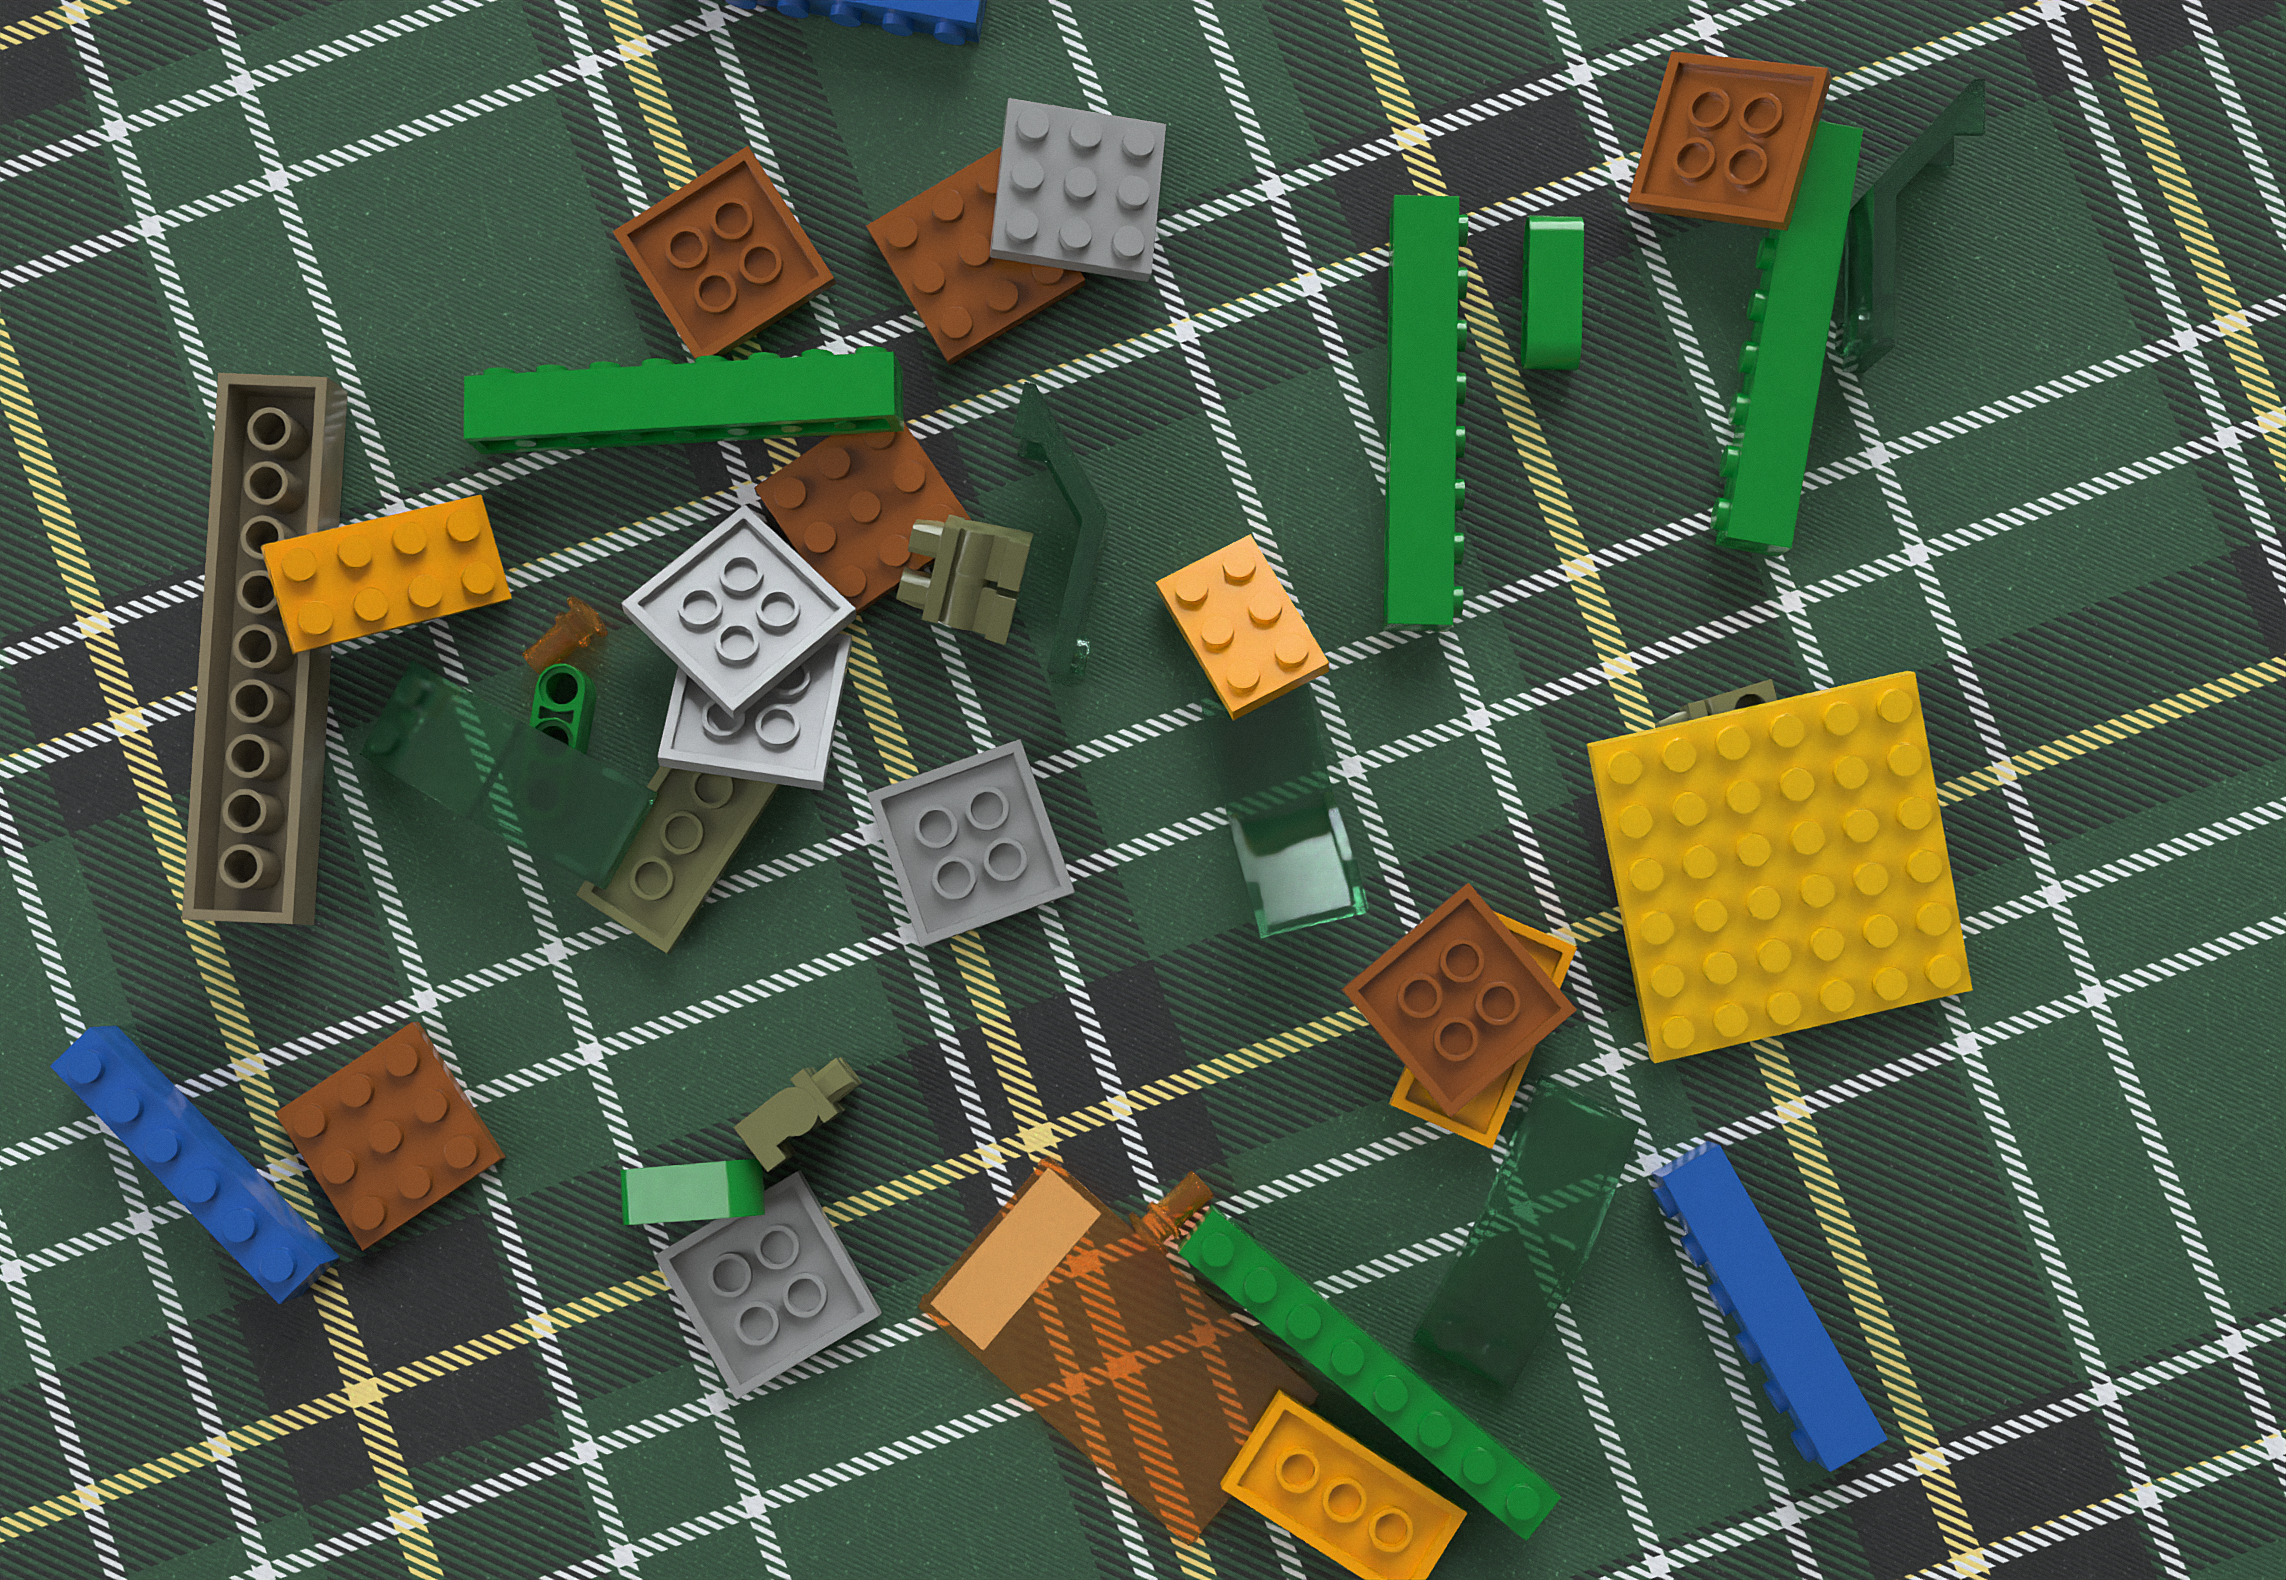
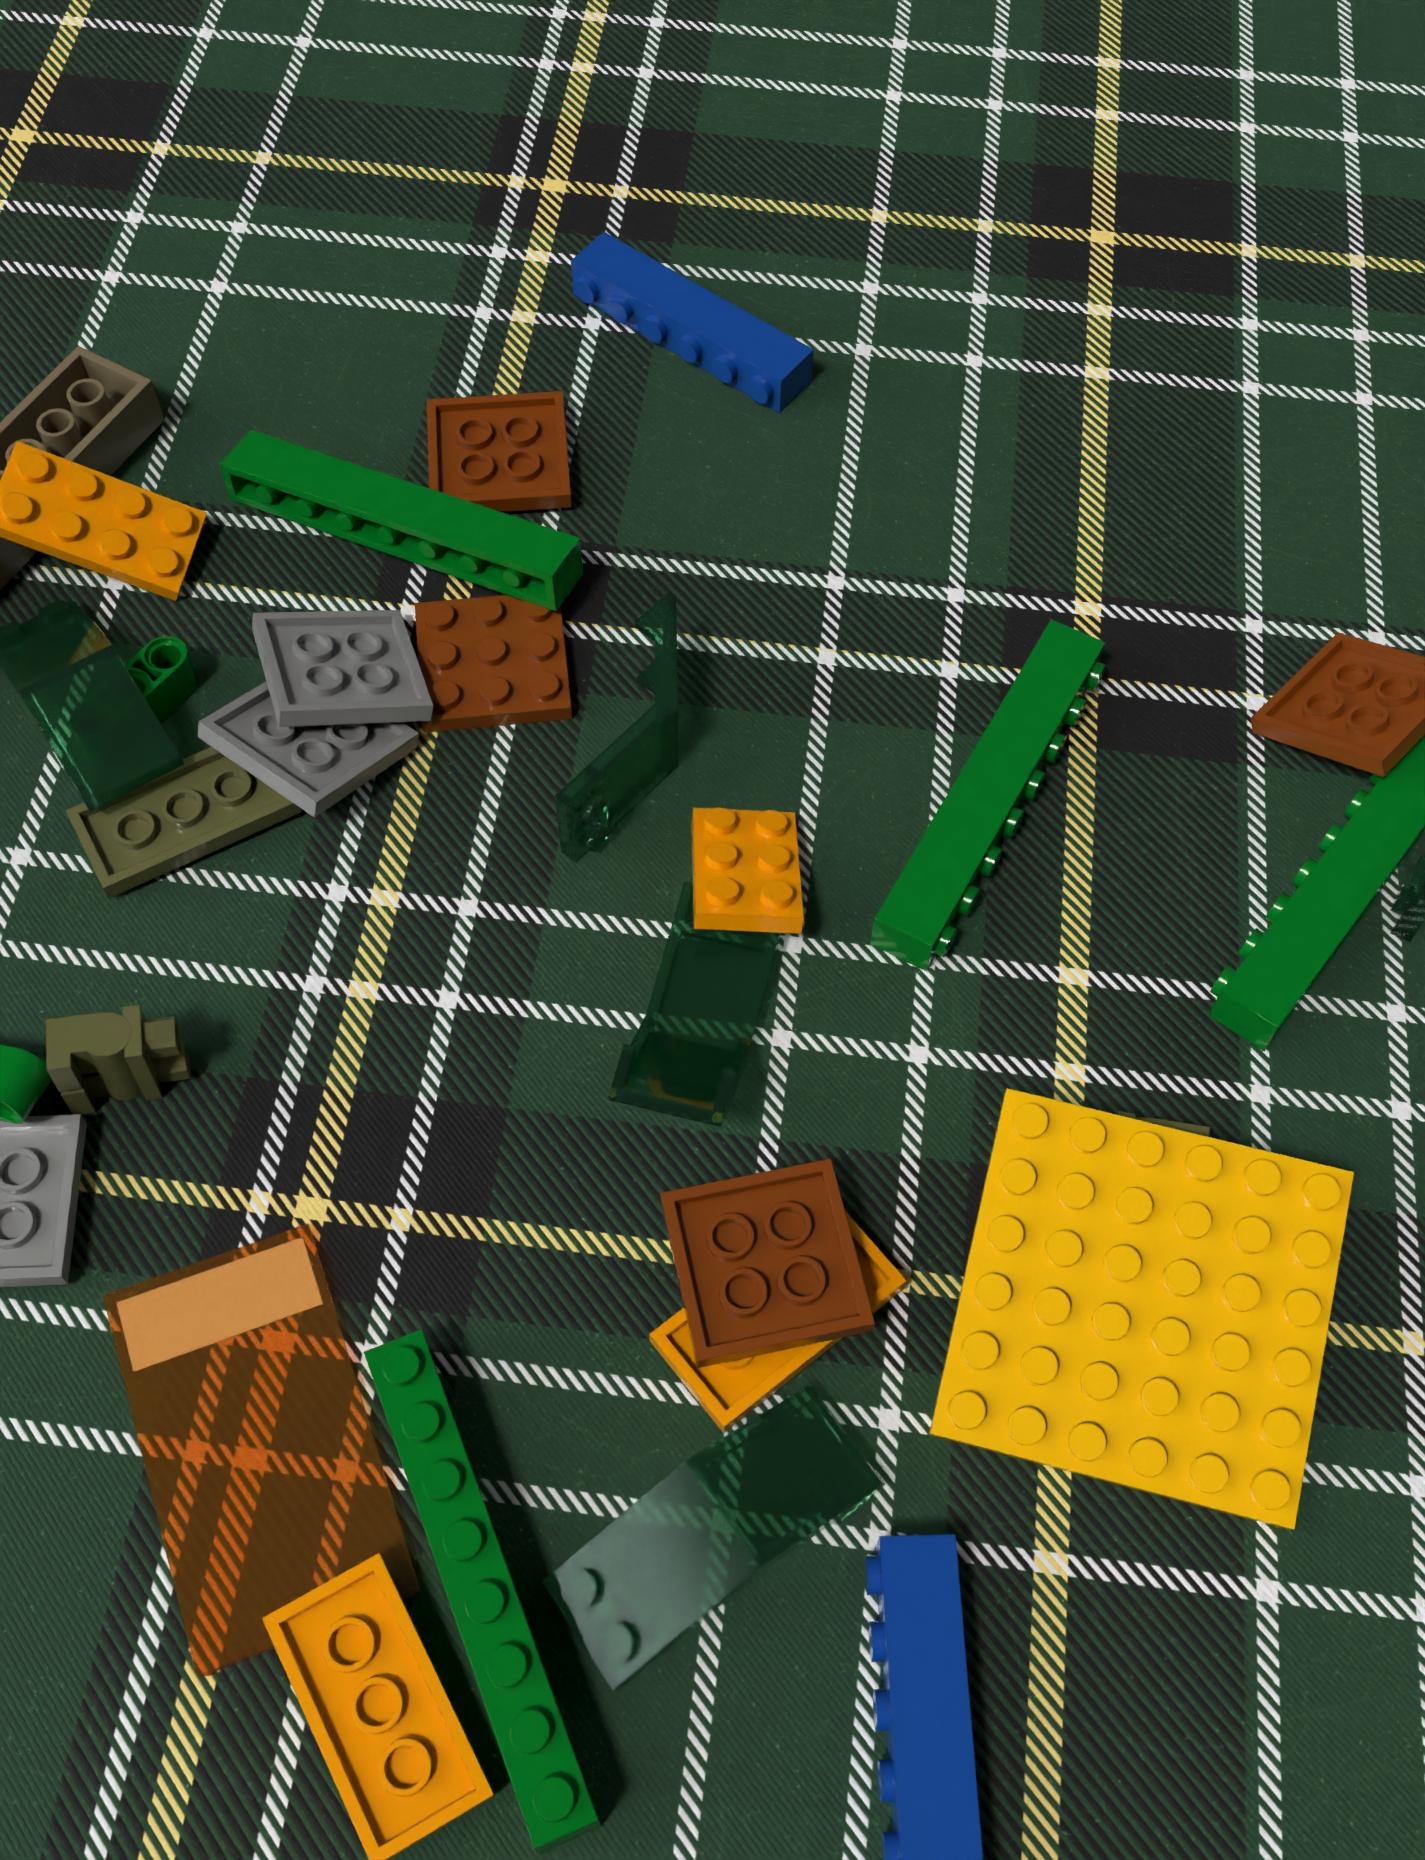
camera: 25 degrees right, 25 degrees down
(565, 636) = (204, 631): clear orange pin -> none
(943, 263) = (691, 536): dark orange plate -> none
(970, 843) = (411, 932): light grey plate -> none
(972, 577) = (535, 720): olive hips -> none
(1078, 190) = (795, 520): light grey plate -> none
(1171, 1212) = (379, 1328): clear orange pin -> none
(1552, 293) = (1151, 753): green beam -> none

